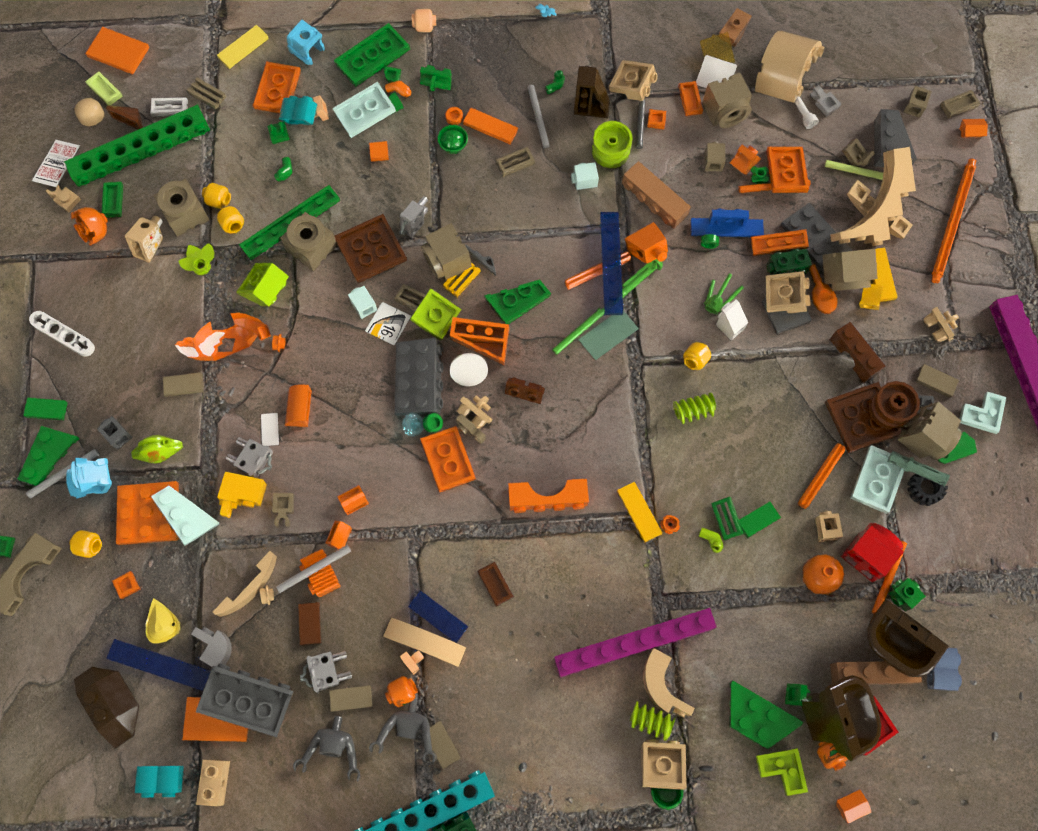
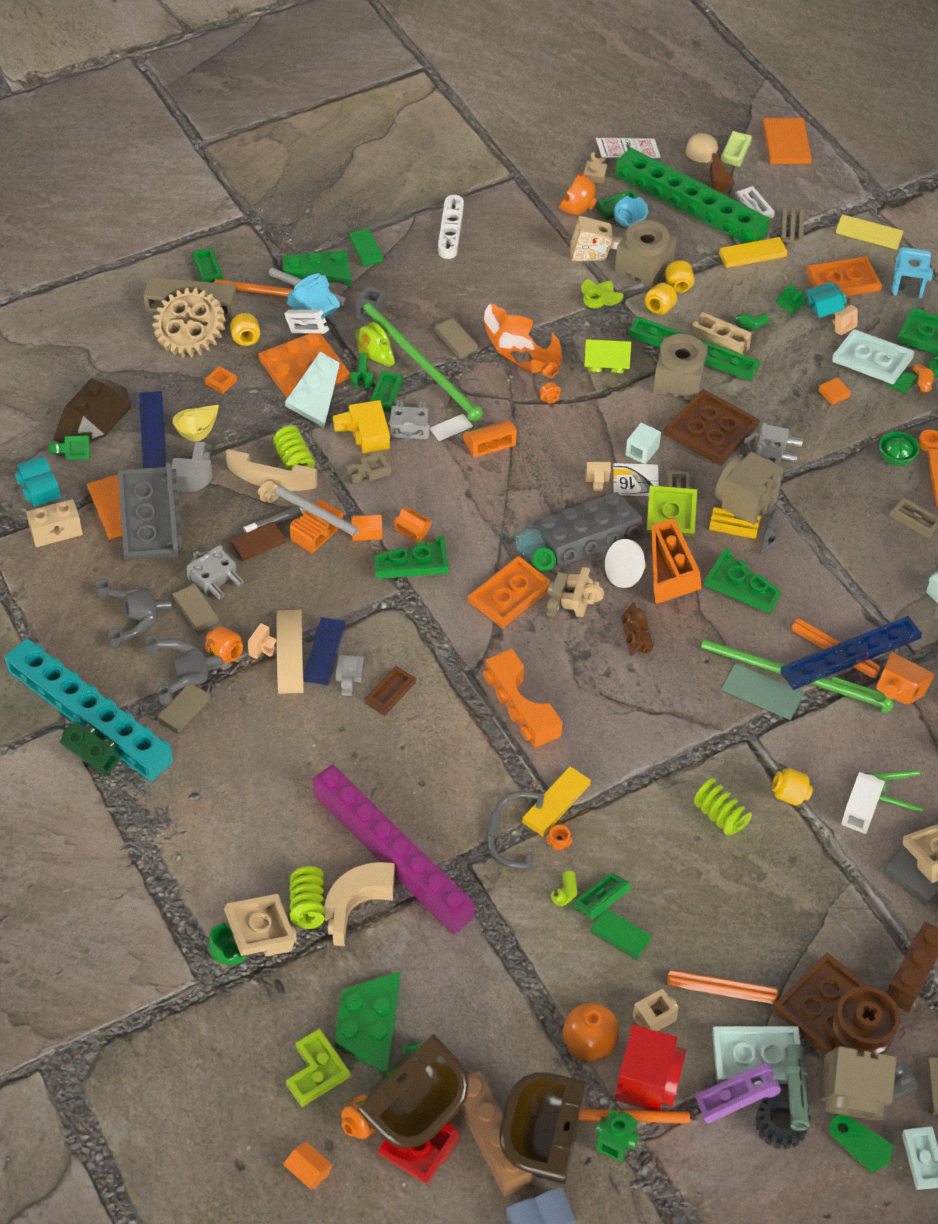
camera: 65 degrees right, 20 degrees down
(39, 576) = (189, 322): none -> tan gear
(40, 515) = (255, 288): none -> orange bar
(108, 492) = (306, 317): none -> white tile
(130, 195) = (630, 211): none -> medium azure hair
(137, 736) = (74, 447): none -> green plate
(179, 471) = (361, 373): none -> green bar
(209, 461) = (387, 389): none -> green tile
(217, 133) = (752, 252): none -> yellow tile
(228, 414) = (474, 413): none -> bright green bar
(237, 561) = (292, 448): none -> lime piece
(294, 190) = (721, 333): none -> tan piece
(294, 601) = (277, 518): none -> dark grey bar
(375, 347) = (598, 474): none -> tan tile
(389, 512) = (415, 561): none -> green wing
(465, 605) = (349, 671): none -> light grey plate
(641, 563) = (494, 824): none -> dark grey piece
(905, 506) = (737, 1092): none -> medium lavender plate

